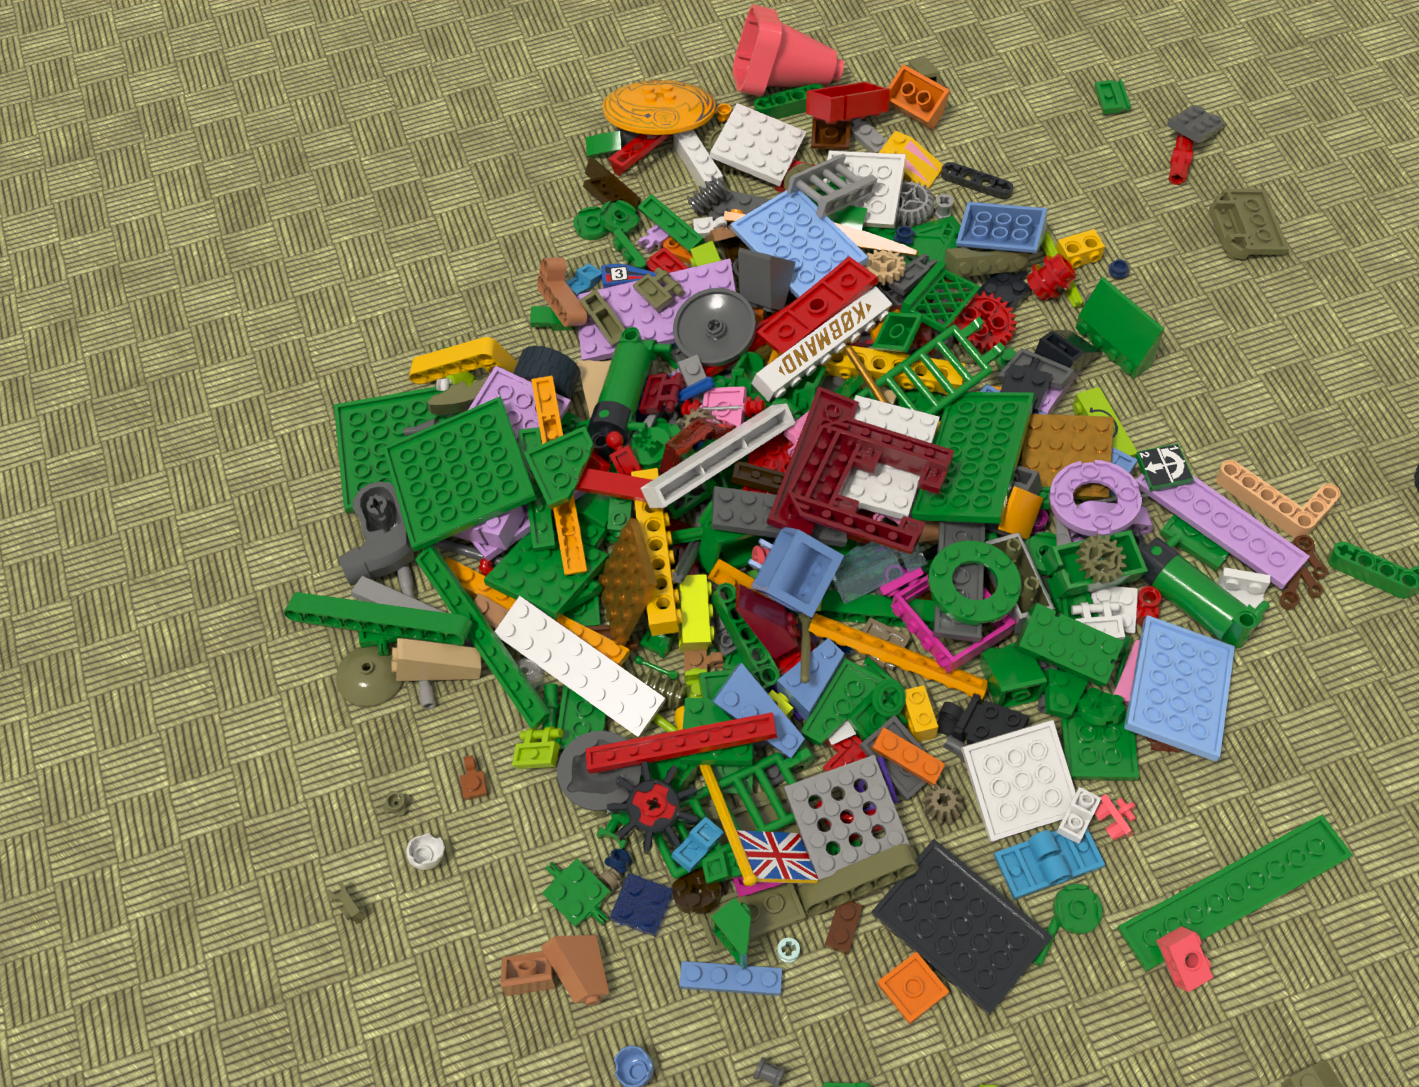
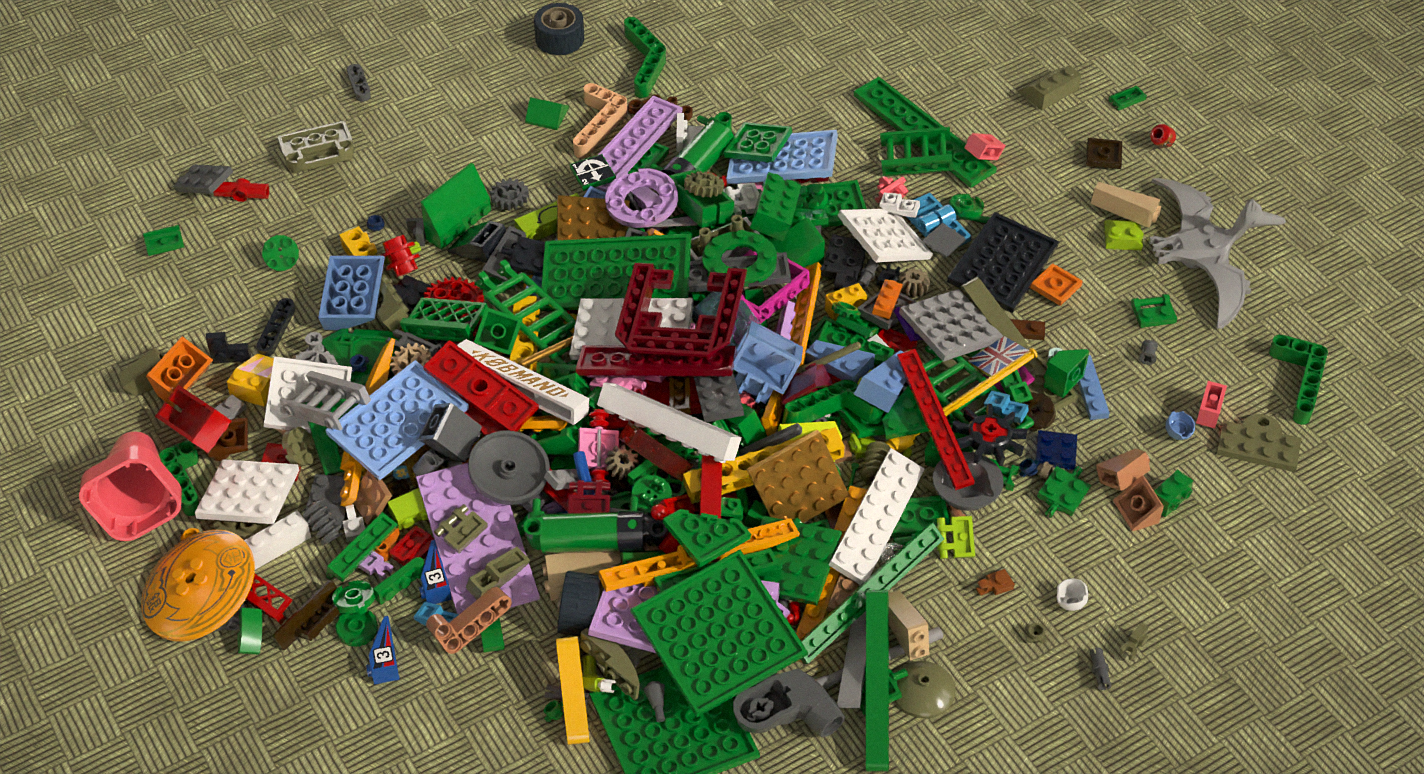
camera: 105 degrees left, 10 degrees down
(328, 856) = (1100, 669): none -> dark grey pin
(536, 1022) = (1174, 491): none -> green brick
(550, 236) = (382, 656): none -> blue slope
(880, 630) = (786, 316): none -> lavender plate
(943, 135) = (224, 352): none -> black plate
(956, 776) = (888, 274): none -> black plate
(1008, 857) = (944, 240): none -> dark grey piece
(1076, 183) = (272, 255): none -> green plate
(1150, 393) = (509, 194): none -> dark grey gear
(1159, 869) = (916, 165): none -> green fence
(1207, 660) = (758, 142): none -> green plate
(1299, 448) = (545, 113): none -> green slope
(1372, 266) = (358, 87): none -> dark grey beam

